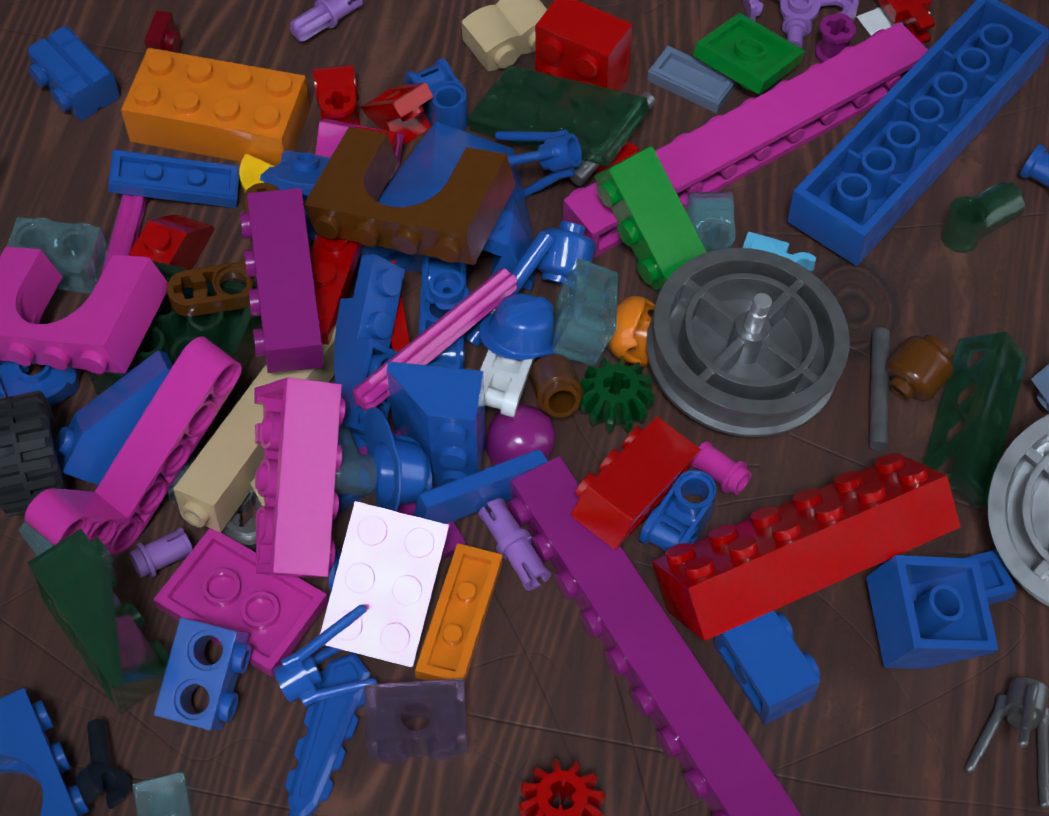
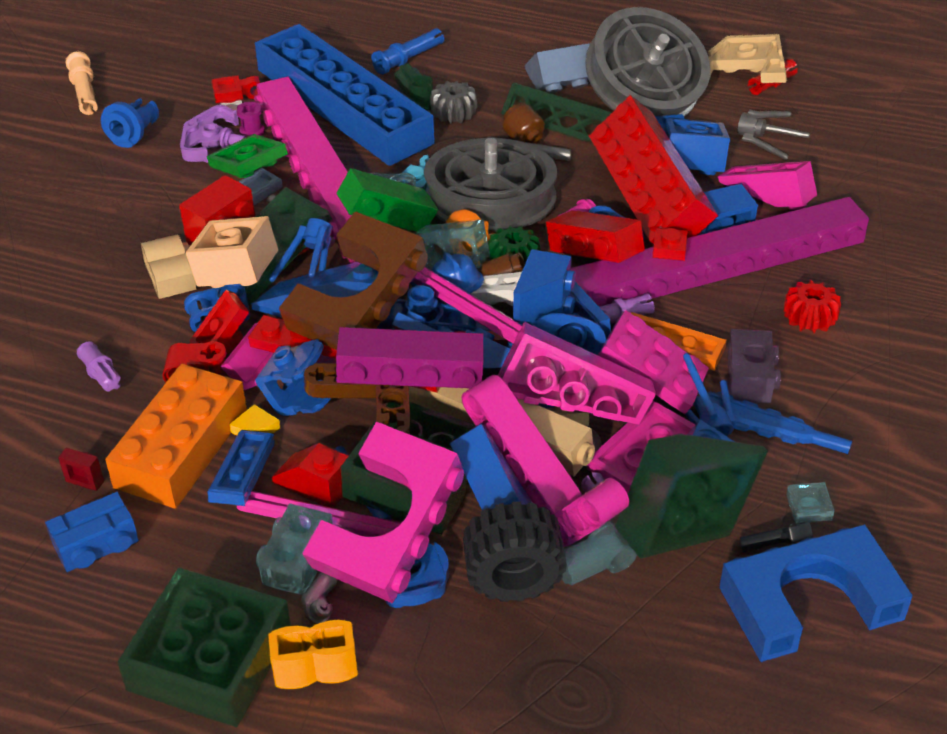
camera: 80 degrees left, 15 degrees down
(490, 70) = (232, 252): none -> light nougat brick
(631, 581) = (670, 244): none -> red plate
(861, 736) = (776, 184): none -> dark pink slope
(956, 269) = (453, 102): none -> flat silver gear

